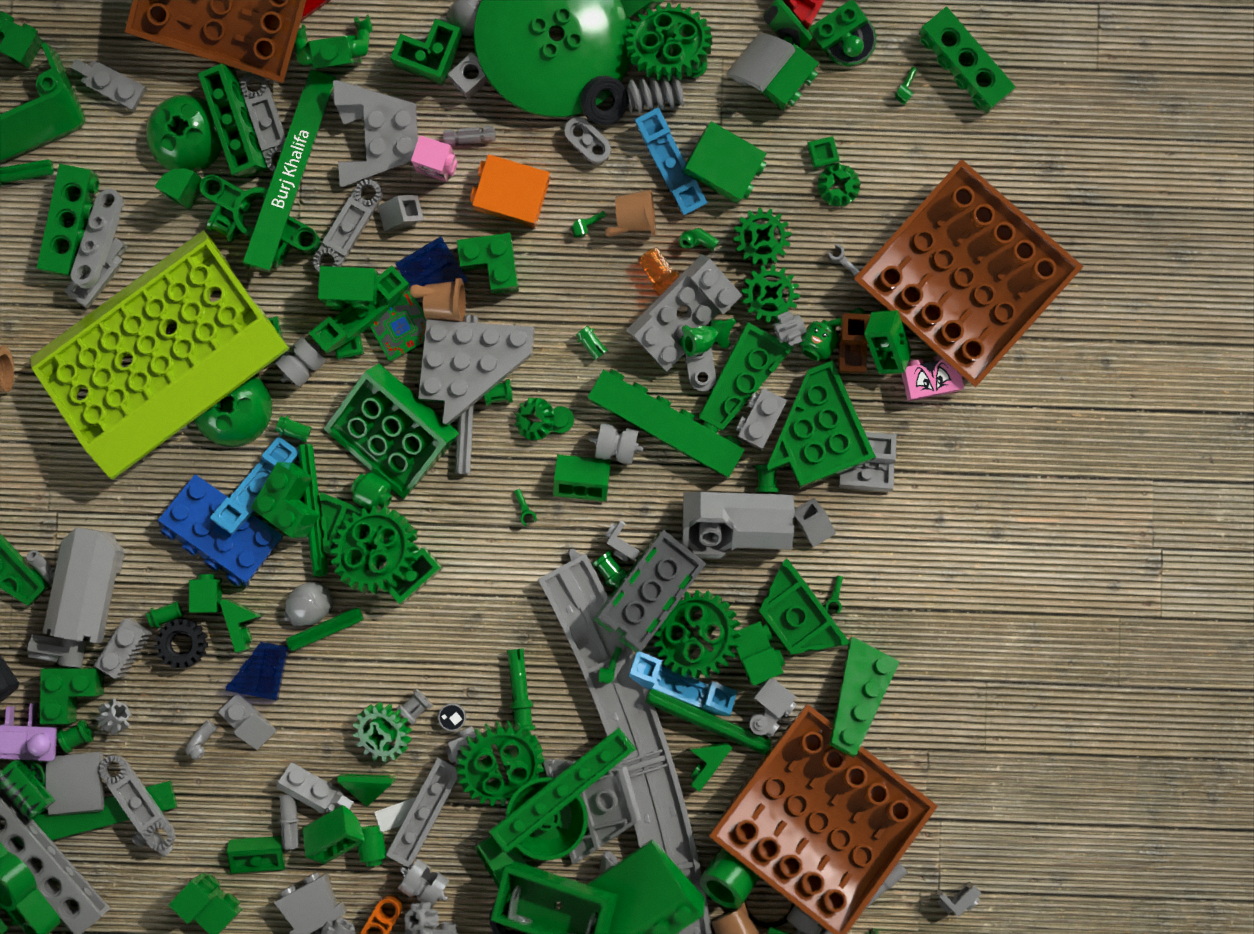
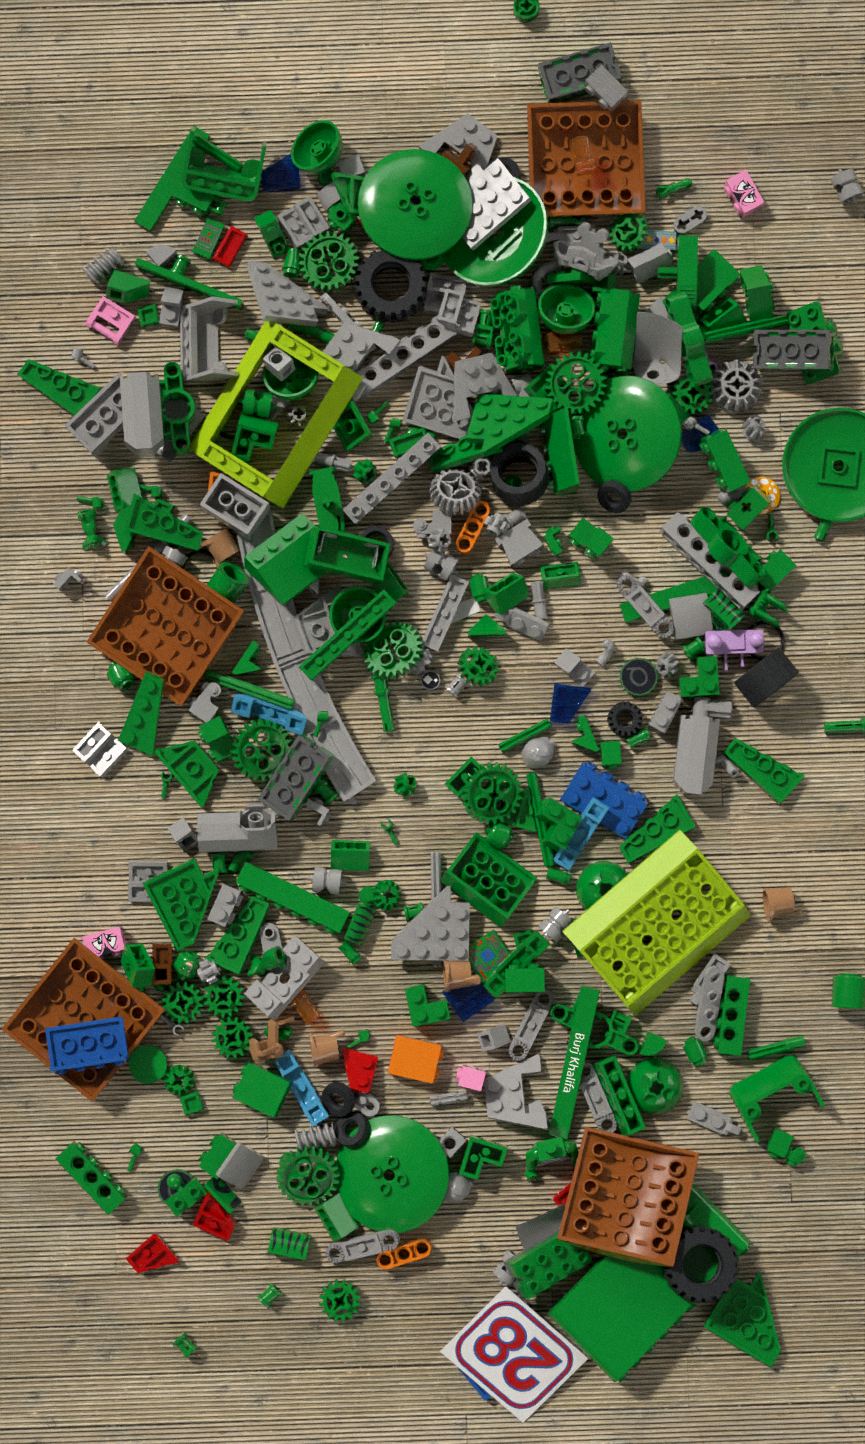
camera: 175 degrees left, 0 degrees up
(124, 176) = (695, 1051): none -> green brick
(148, 483) = (657, 830): none -> green wing
(157, 702) = (638, 676): none -> black tile
(261, 900) = (552, 543): none -> green bracket
(497, 571) = (405, 784): none -> green gear
(574, 381) = (360, 924): none -> green brick
(588, 180) = (359, 1070): none -> red wing
(612, 151) = (329, 1103): none -> black tyre
(709, 222) = (270, 1047): none -> medium nougat piece
(738, 484) = (239, 857): none -> green arm
(826, 278) = (174, 1004): none -> green gear
(880, 209) = (148, 1064): none -> green tile
(892, 752) = (120, 677): none -> green head
(925, 650) = (100, 750): none -> slope
(965, 234) = (87, 1045): none -> blue bracket

